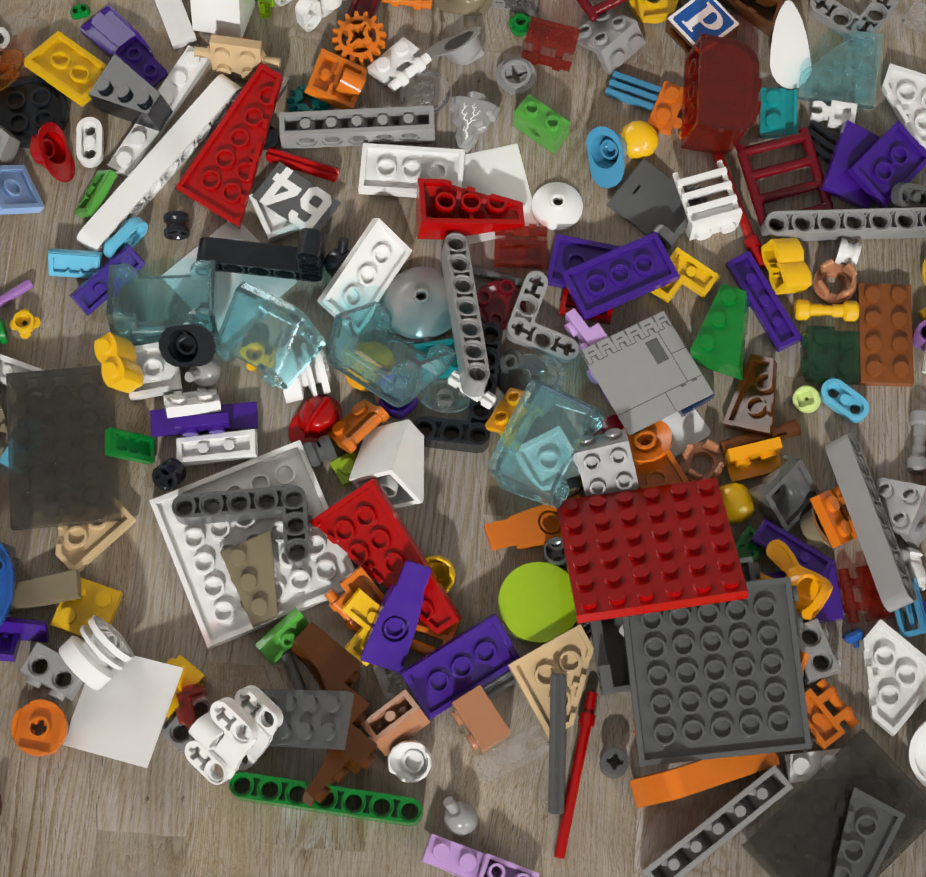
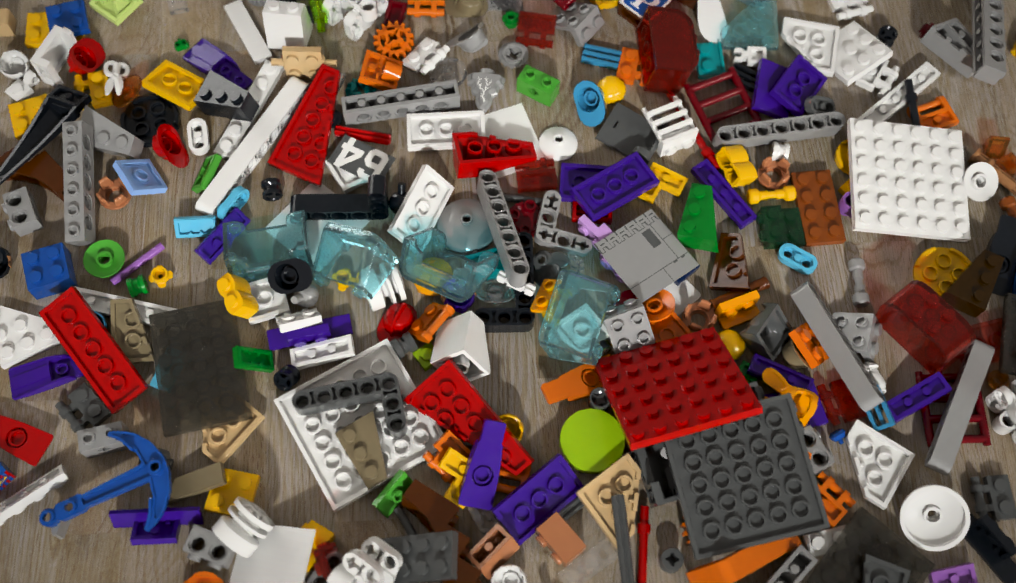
camera: 10 degrees left, 5 degrees down
(806, 399) = (768, 261): yellowish green tile -> none

